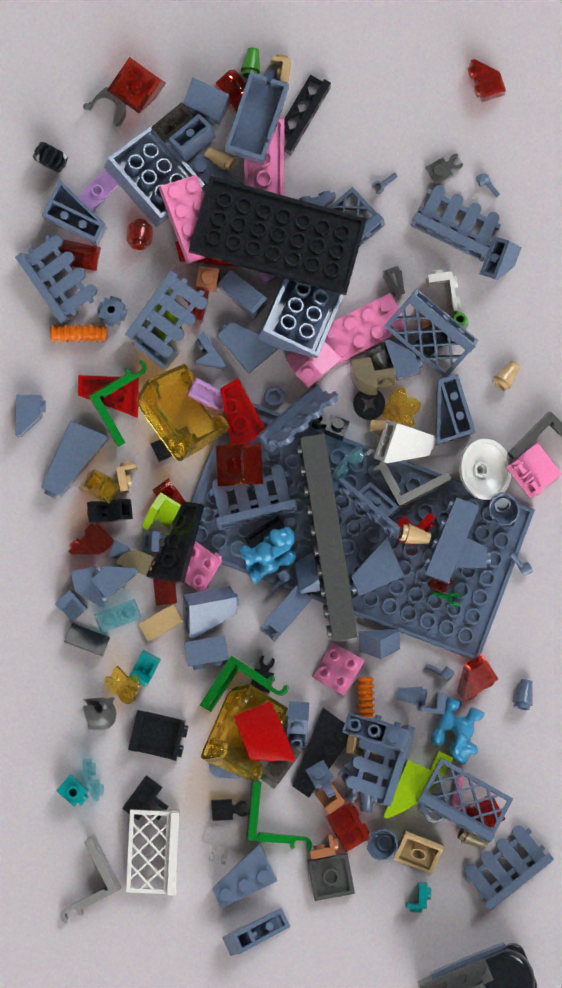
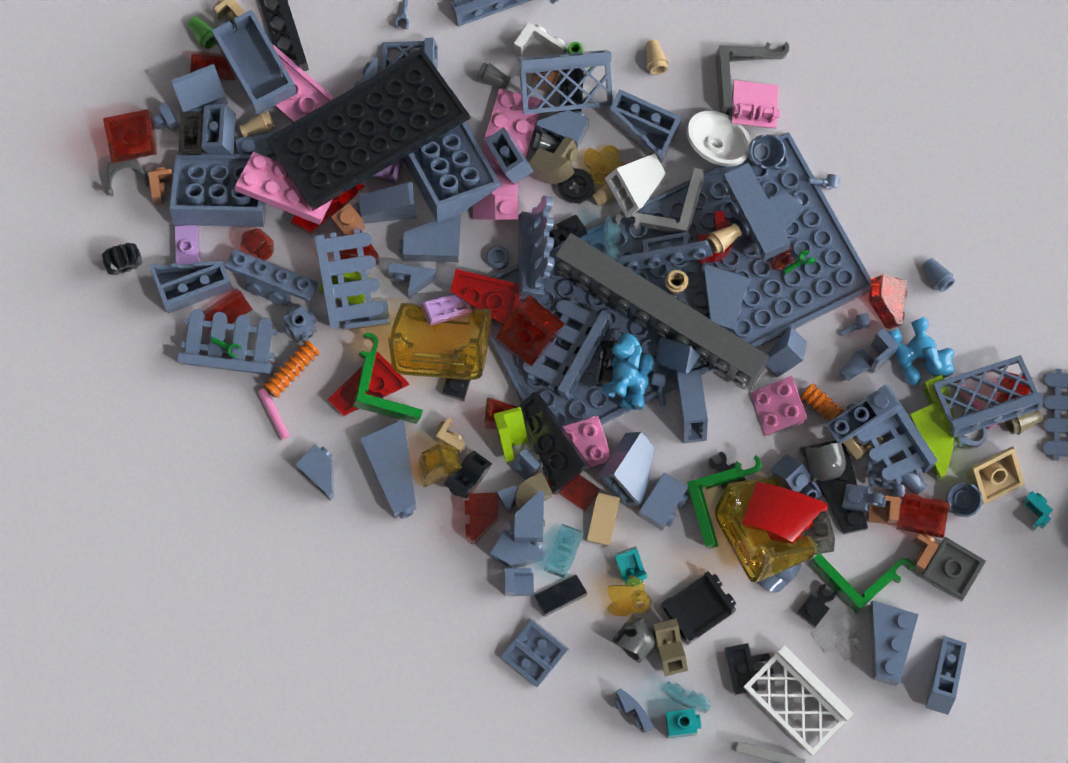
camera: 50 degrees left, 10 degrees down
(35, 656) = (534, 653): none -> sand blue slope
(39, 349) = (273, 413): none -> bright pink piece
(53, 279) = (225, 346): none -> green hand
(54, 746) = (628, 705): none -> sand blue slope
(113, 740) = (670, 647): none -> dark tan brick
(118, 134) = (158, 189): none -> nougat bracket
(123, 264) = (270, 280): none -> sand blue bracket
(171, 96) = (166, 118): none -> sand blue tile
(325, 735) = (826, 462): none -> dark grey helmet
(344, 343) = (509, 155): none -> sand blue brick
(362, 525) = (676, 277): none -> tan cone

